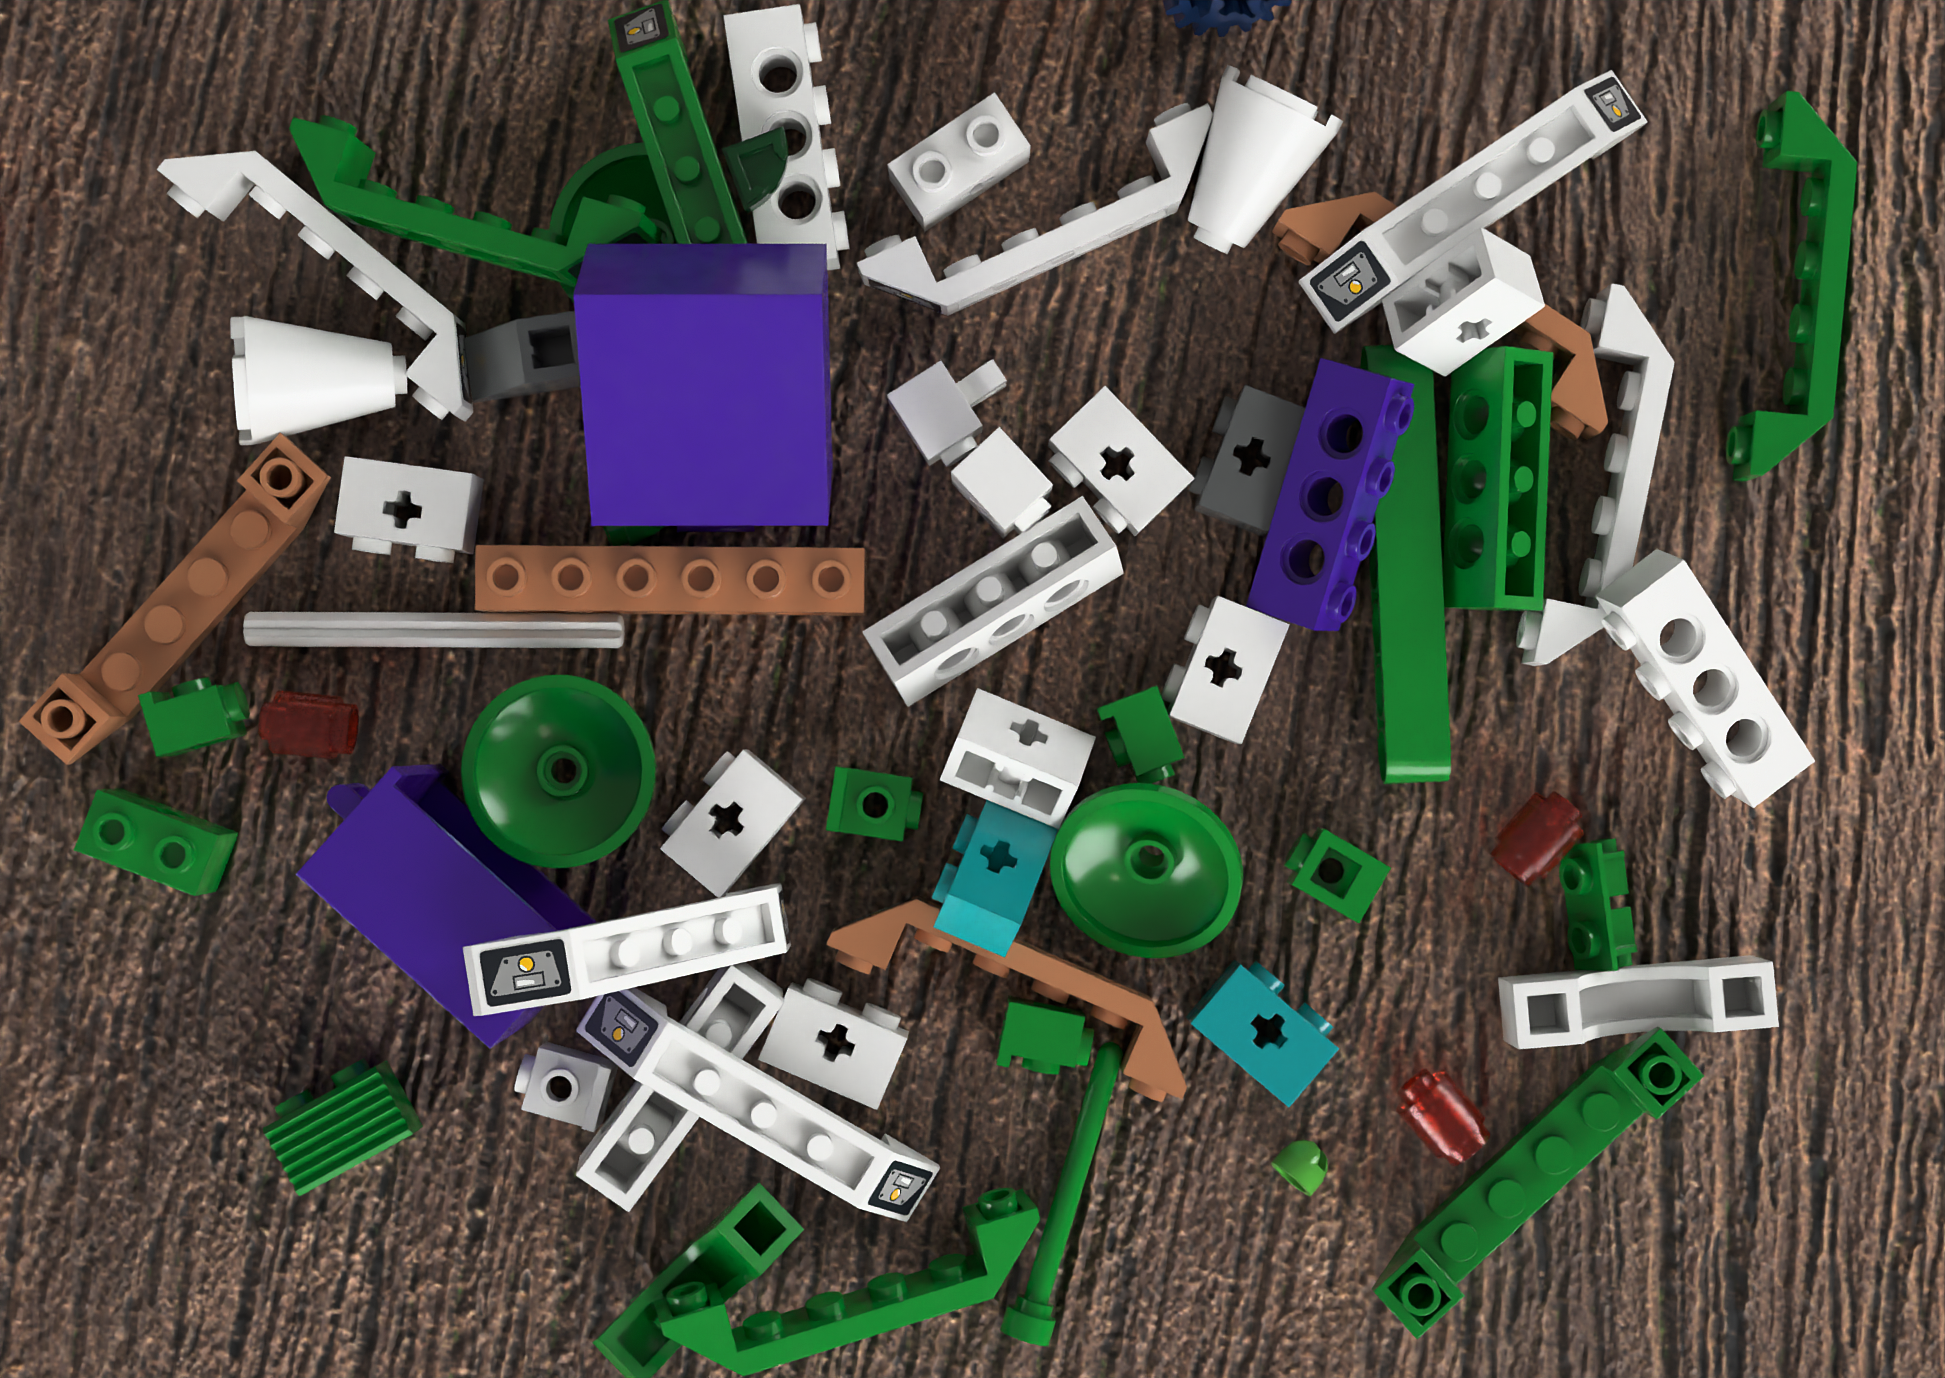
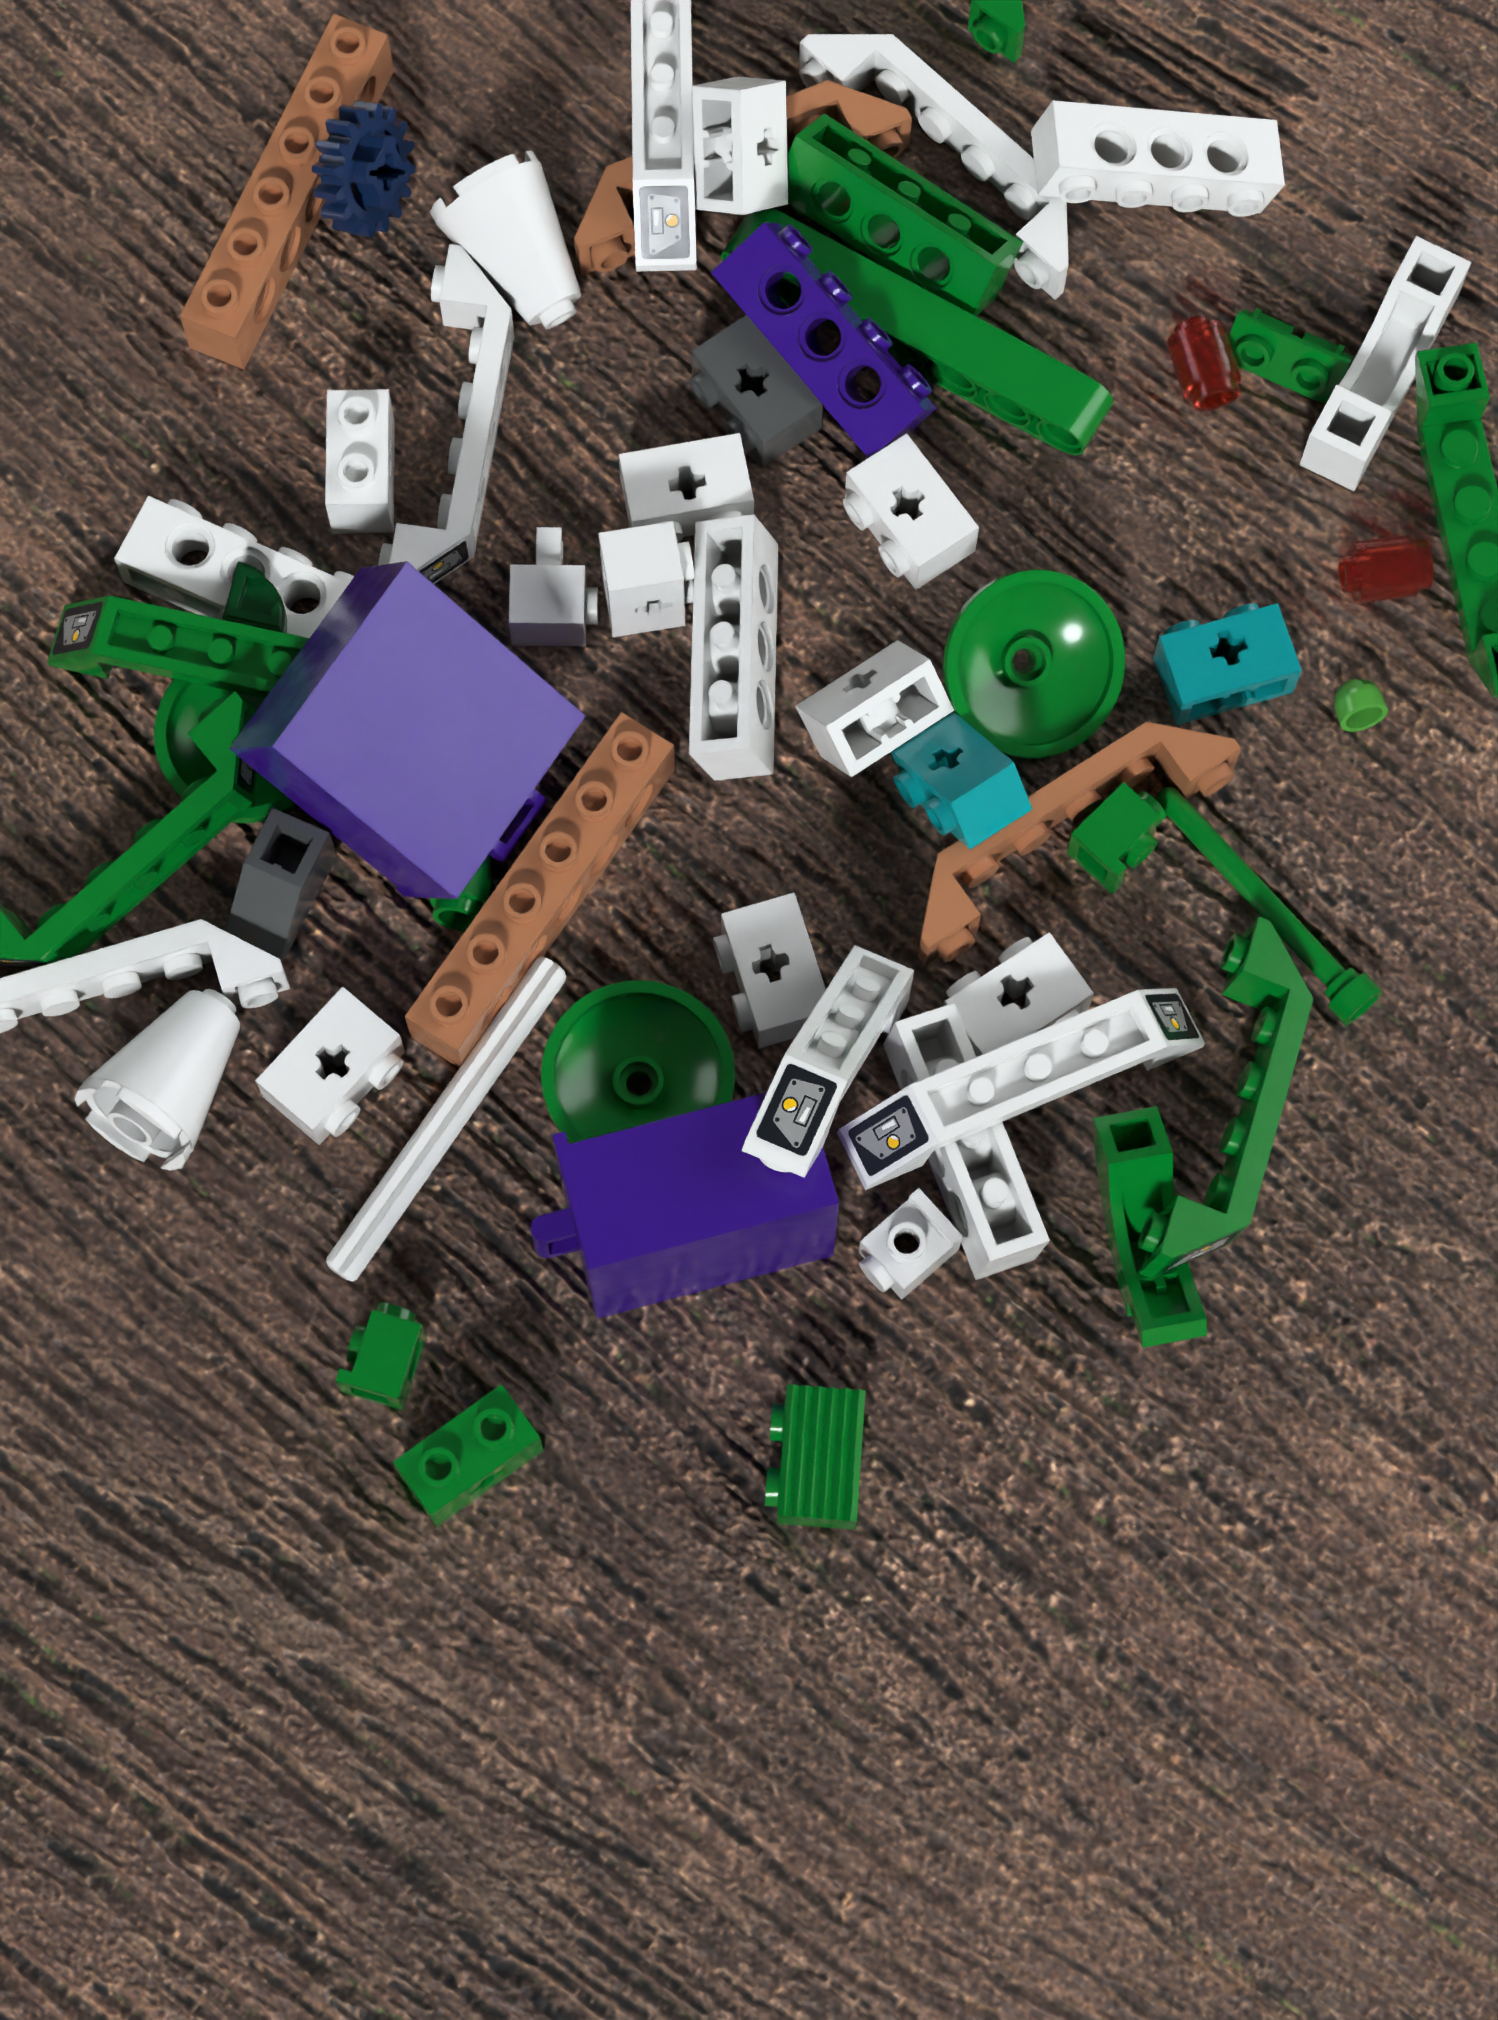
camera: 60 degrees left, 15 degrees down
(185, 607) = (279, 1296): nougat slope -> none
(309, 725) = (457, 1266): clear red brick -> none
(847, 799) = (831, 871): green brick -> none
(1142, 735) = (917, 605): green brick -> none
(1358, 877) = (1137, 510): green brick -> none

